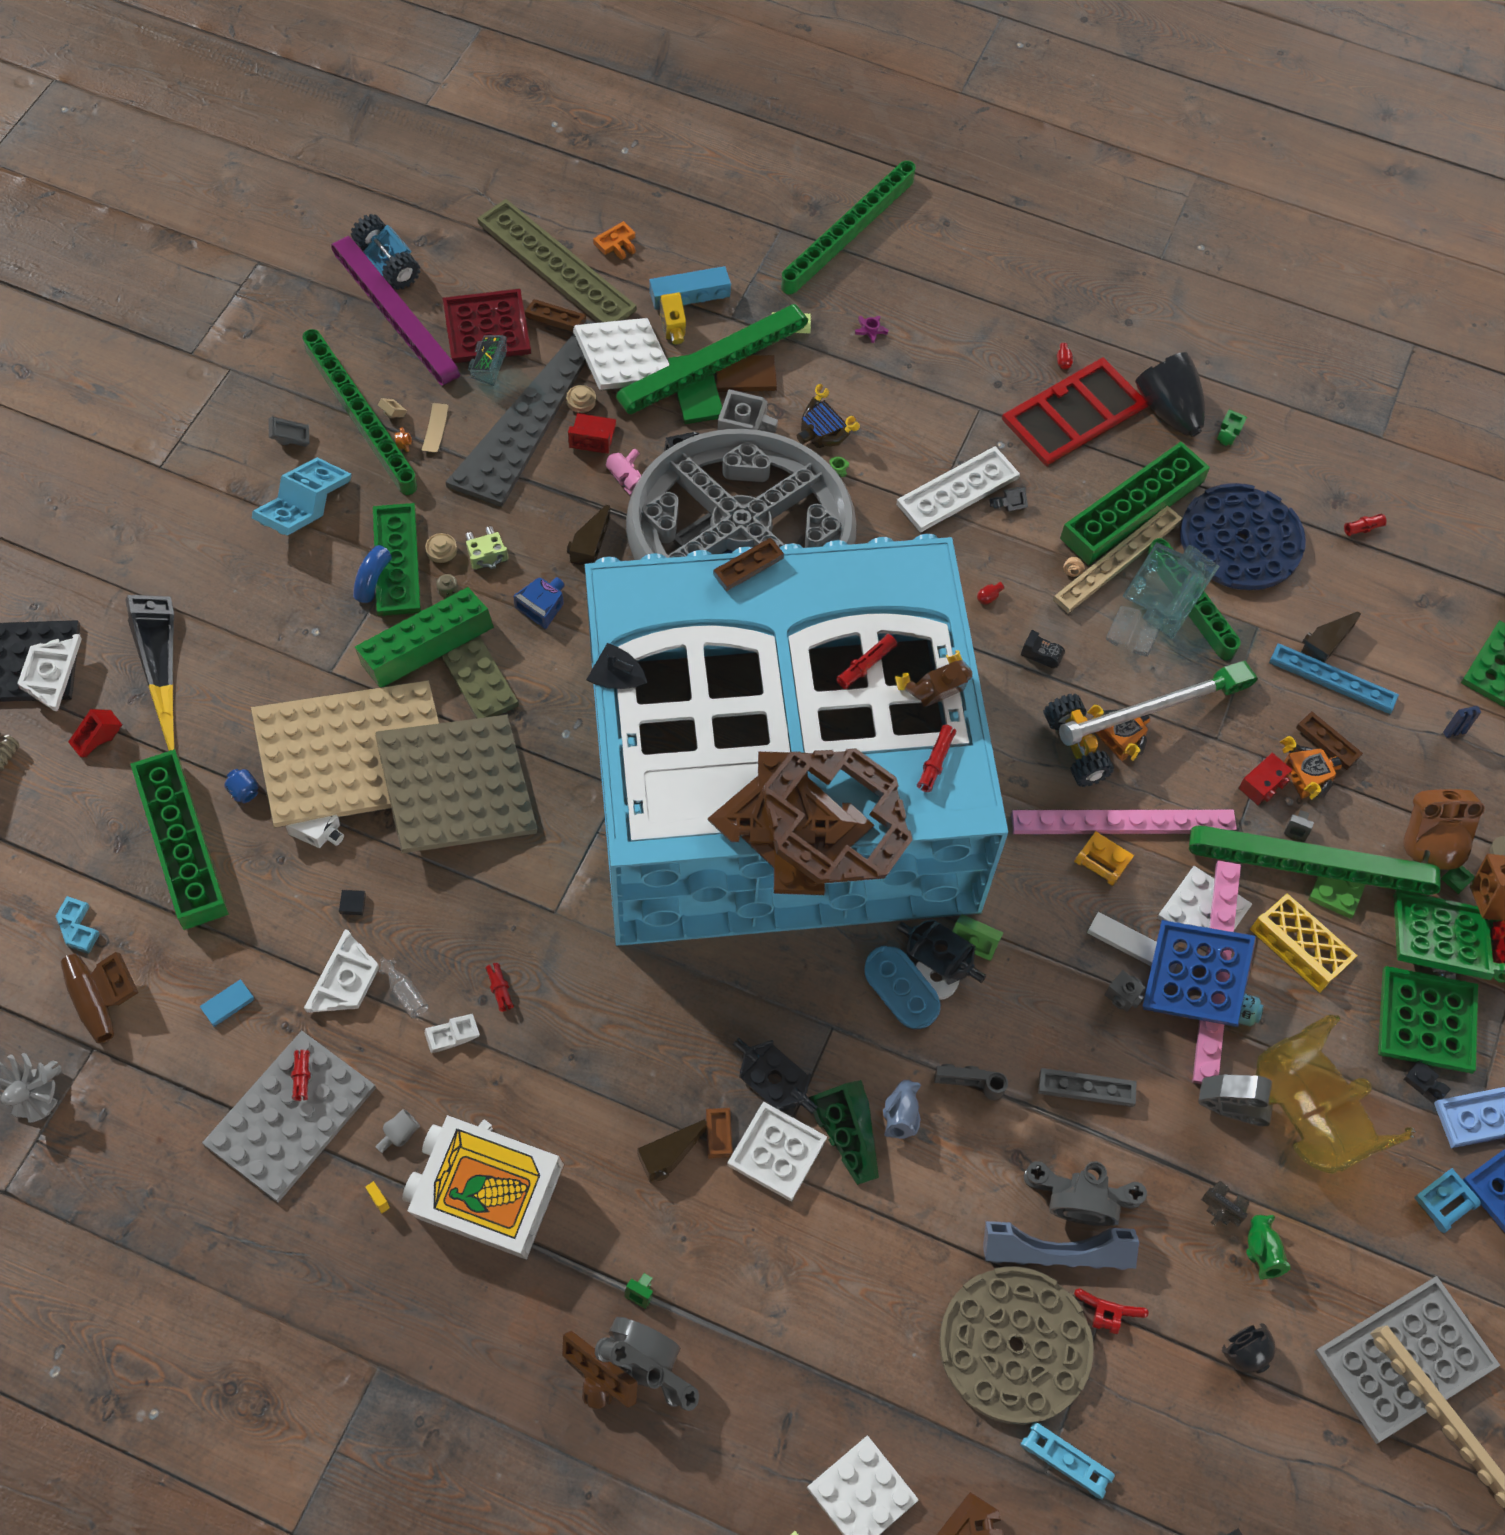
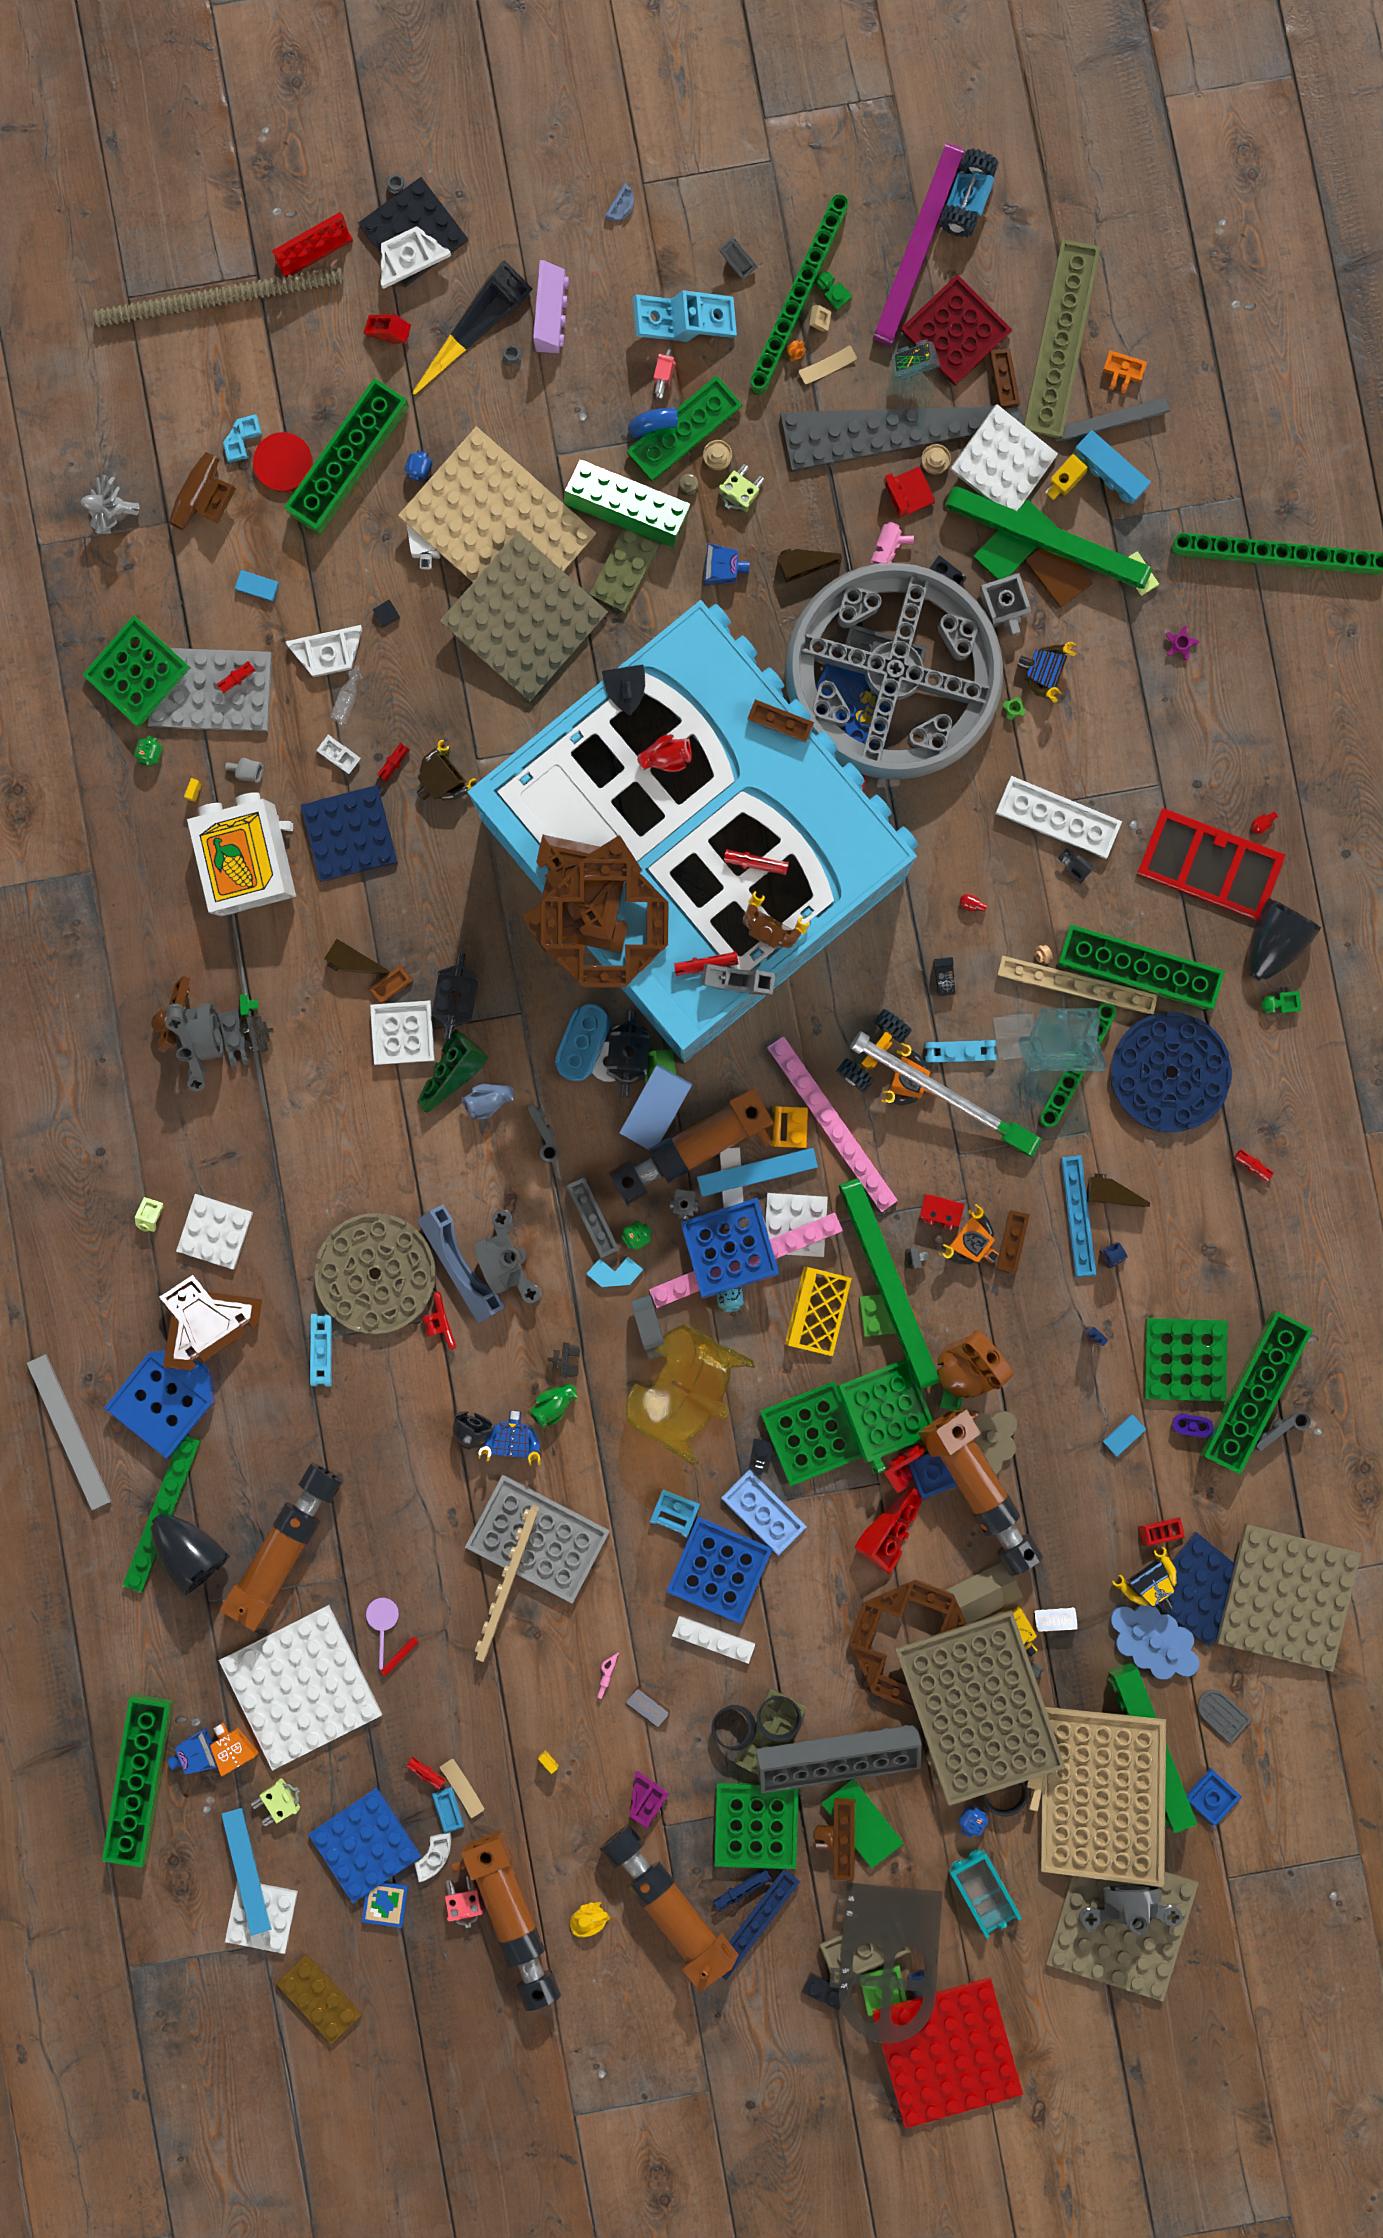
camera: 65 degrees right, 25 degrees up
(132, 902) = (282, 461): none -> red tile
(164, 491) = (622, 205): none -> sand blue tile
(199, 593) = (549, 308): none -> lavender slope
(211, 649) = (512, 354): none -> dark grey plate
(231, 1205) = (123, 672): none -> green piece
(302, 1216) = (148, 751): none -> green head
(335, 541) = (663, 373): none -> coral piece
(382, 387) = (837, 294): none -> green plate
(537, 1074) = (349, 833): none -> dark blue plate
(549, 949) = (441, 777): none -> dark brown torso
(651, 267) = (1114, 419): none -> dark grey piece
(668, 1326) = (232, 1035): none -> dark grey hinge
(688, 1306) = (258, 1032): none -> clear smoke hips
(710, 667) = (666, 754): none -> red animal
(976, 735) = (738, 980): none -> dark grey arch
(1014, 957) = (656, 1107): none -> light blue tile
(1072, 886) = (696, 1145): none -> dark orange piece
(1120, 679) = (960, 1051): none -> medium azure plate
(1131, 1056) = (637, 1235): none -> green head
(1132, 911) = (757, 1172): none -> dark azure tile
(1156, 1113) = (624, 1275): none -> medium azure tile
(1285, 1312) = (513, 1439): none -> blue torso
(1389, 665) = (1114, 1254): none -> dark blue leg

